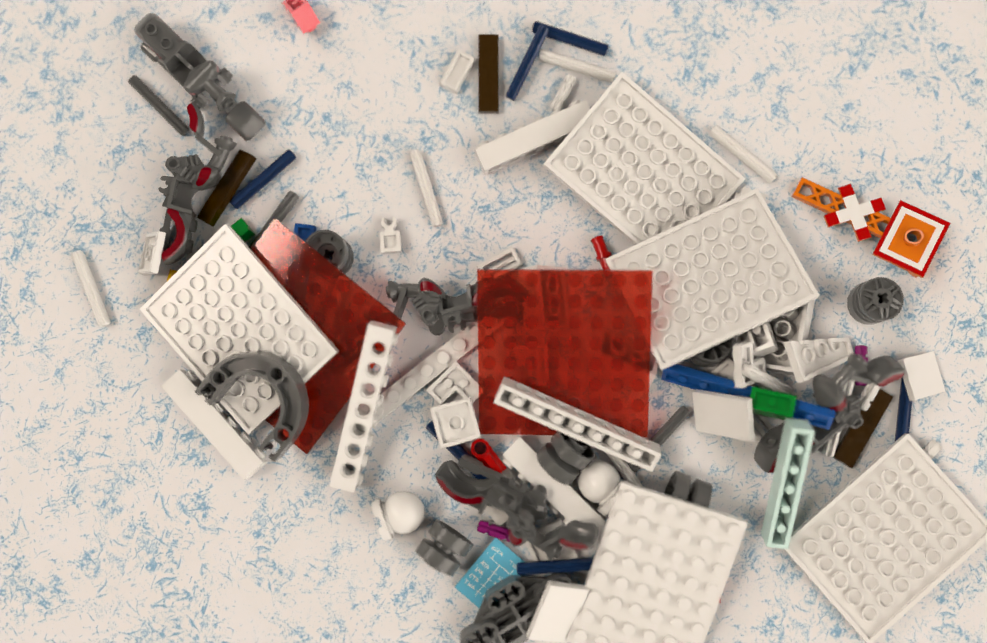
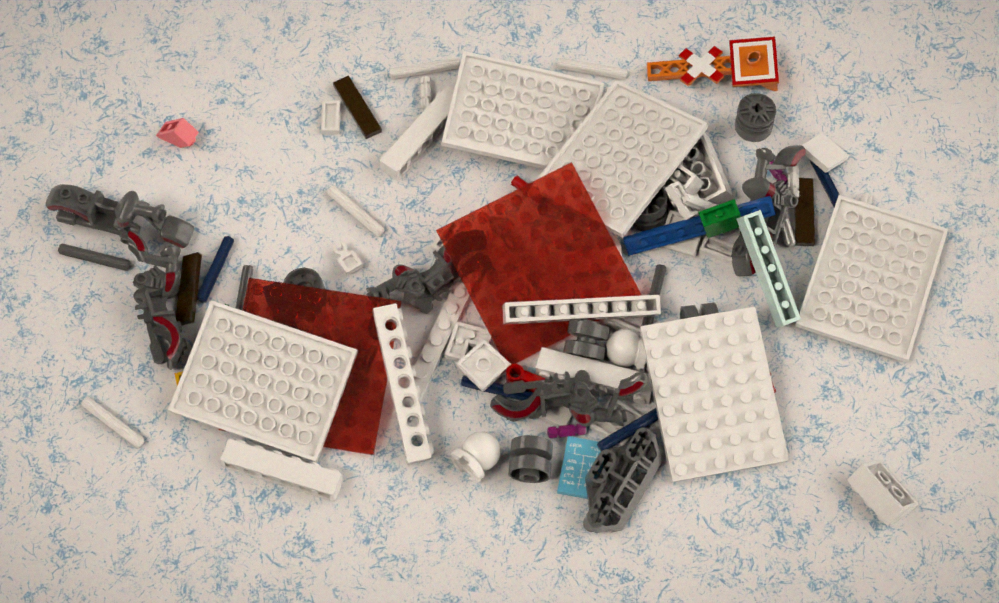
camera: 30 degrees left, 20 degrees down
(151, 253) = (154, 364): white tile -> none
(289, 387) = (303, 390): dark grey piece -> none
(527, 62) = (384, 84): dark blue axle -> none
(557, 611) = (650, 458): white tile -> none
(573, 39) = (407, 52): dark blue axle -> none
(723, 415) = (690, 247): white tile -> none
(816, 356) = (733, 172): white wing -> none

